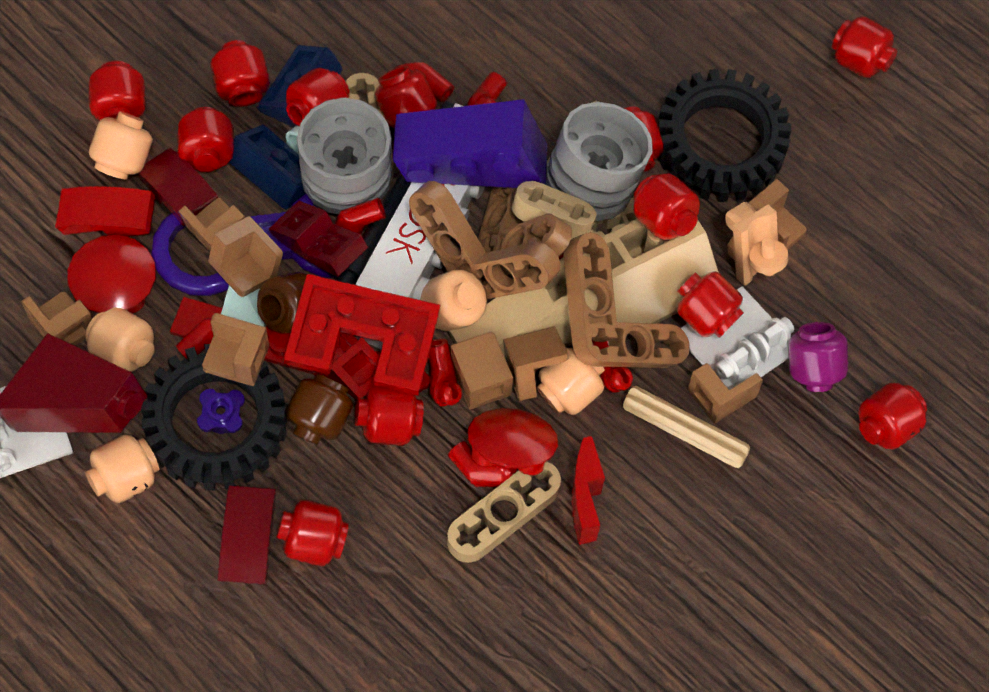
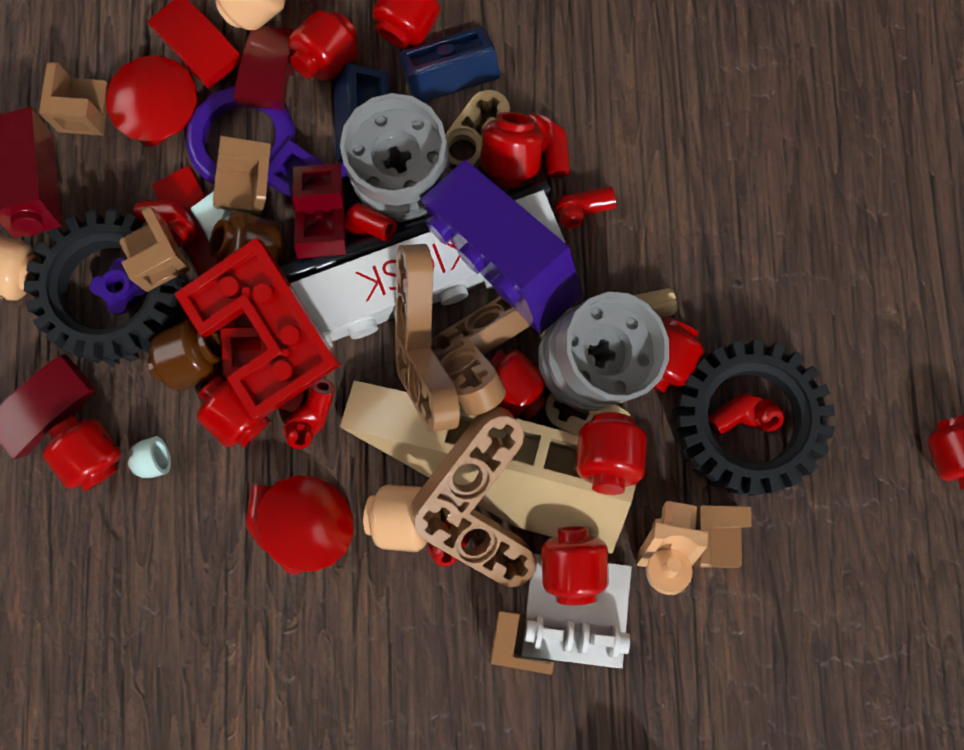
camera: 50 degrees right, 15 degrees up
(120, 338) = (98, 160): light nougat head -> none
(210, 220) = (252, 122): medium nougat panel -> none
(312, 90) = (438, 83): red head -> none
(360, 500) = (149, 458): none -> light aqua hinge
(460, 299) = (372, 362): light nougat head -> none
(470, 522) = (209, 583): tan beam -> none
(481, 370) = (338, 439): medium nougat panel -> none
(530, 353) = (387, 471): medium nougat panel -> none
(537, 199) = (519, 363): tan beam -> none
(587, 482) = (328, 613): red slope -> none
(686, 426) = (460, 644): tan axle -> none
(718, 133) = (747, 410): none -> red arm
(818, 356) = (624, 696): magenta head -> none

